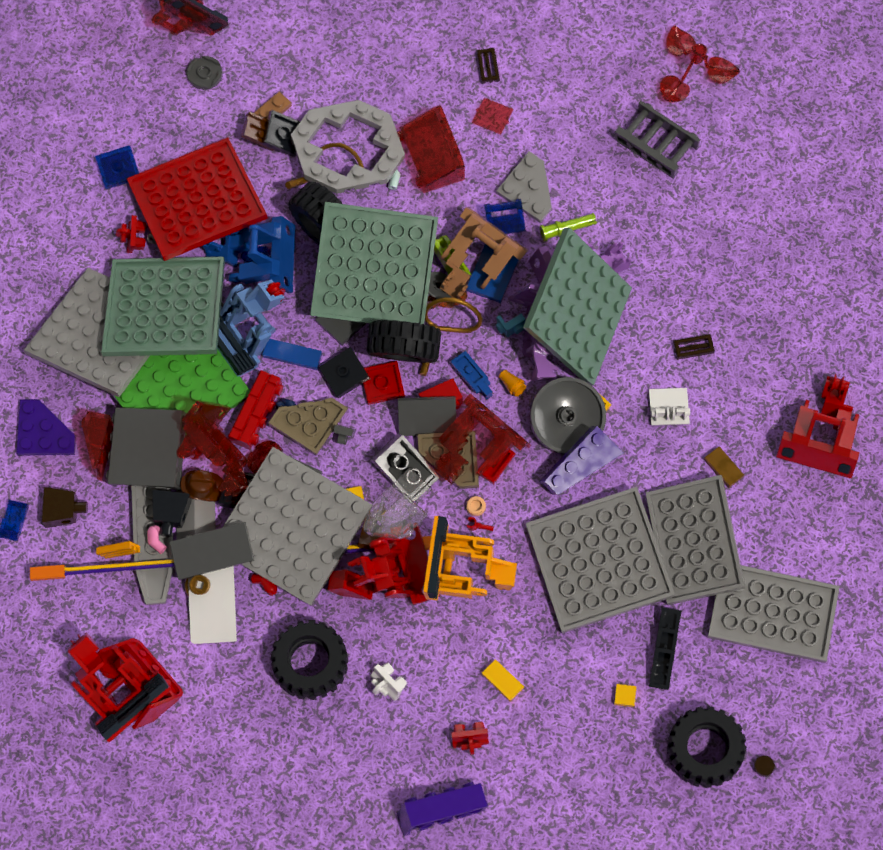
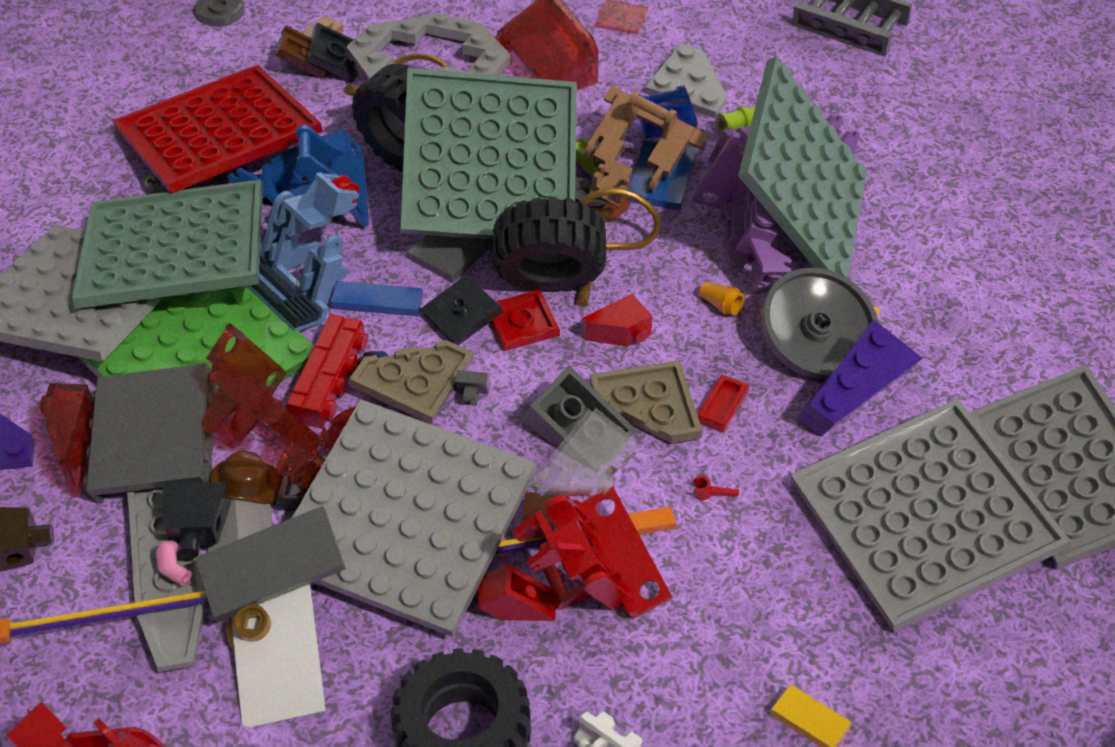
camera: 10 degrees left, 20 degrees down
(117, 166) = (96, 111): clear blue plate -> none
(118, 549) = (106, 586): light orange tile -> none
(133, 242) = (123, 179): red hips -> none
(269, 587) = (372, 615): red arm -> none
(425, 415) = (601, 343): dark grey tile -> none
(445, 547) = (726, 506): light orange container -> none
(472, 374) = (659, 294): blue hinge -> none
(476, 506) = (703, 463): light nougat tile -> none
(503, 440) = (652, 366): clear red container -> none
(512, 326) = (703, 230): medium azure bracket -> none
(625, 695) = (1032, 717): yellow tile -> none
(665, 648) = (1076, 633): black slope -> none
(669, 406) = (968, 303): white hinge -> none
(697, 346) = (980, 233): dark brown tile -> none
(724, 466) = (1065, 359): pearl gold tile -> none

